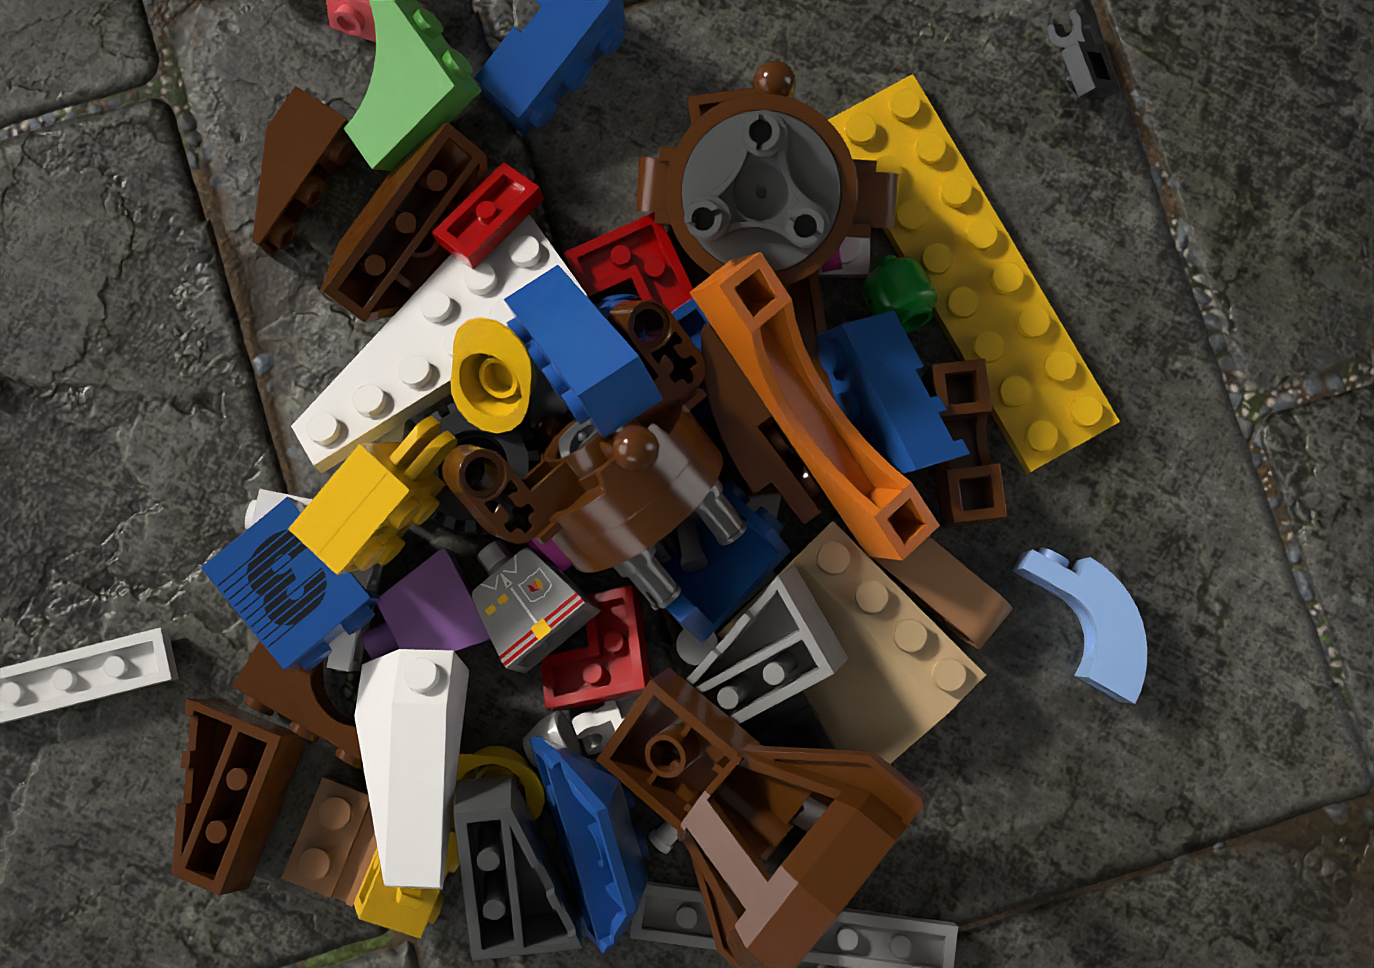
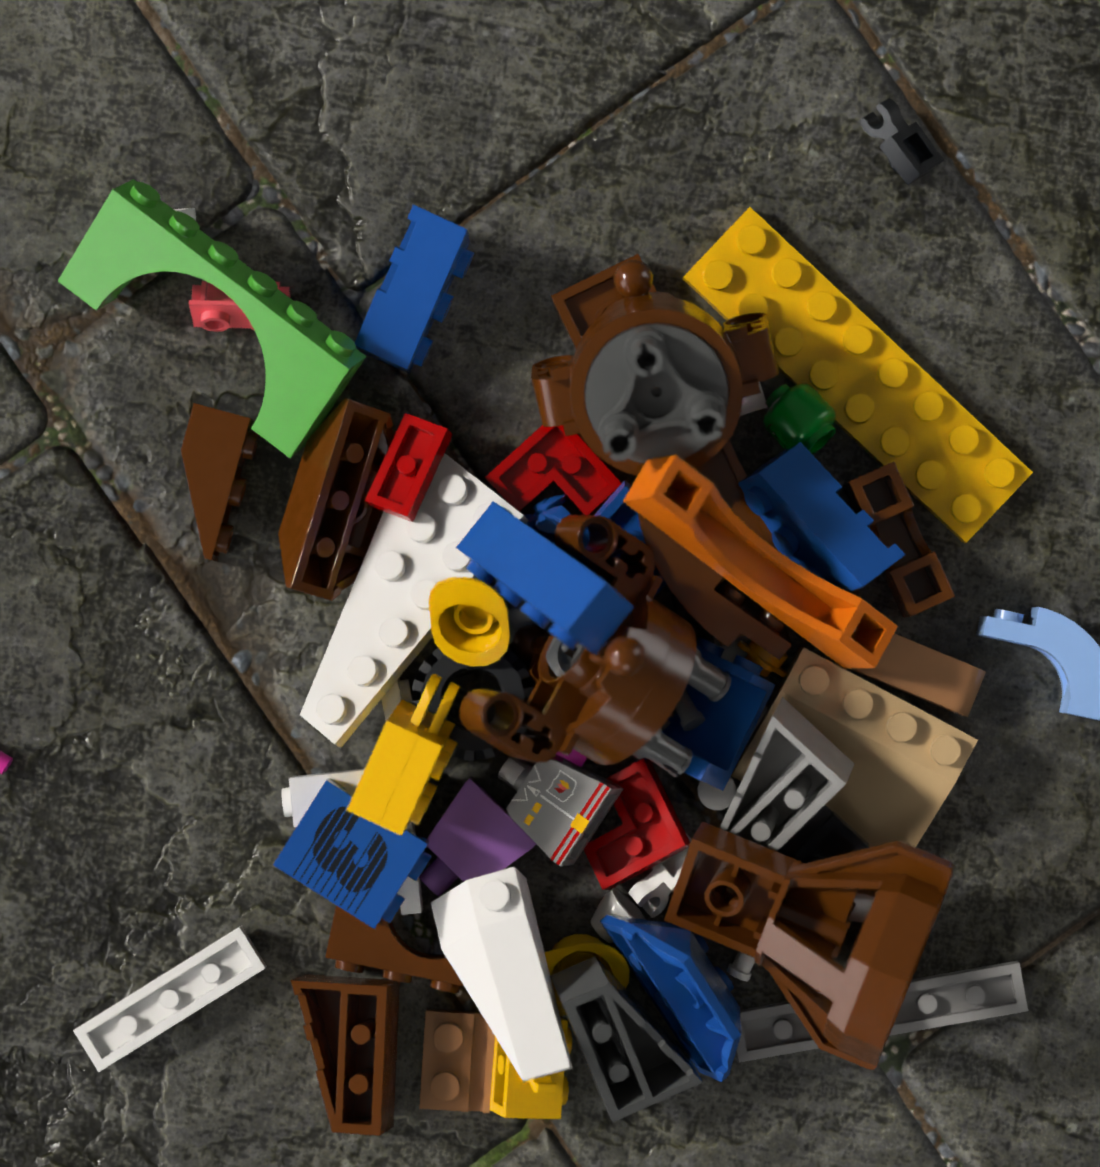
camera: 15 degrees left, 5 degrees up
(792, 524) = (763, 658): none -> plate

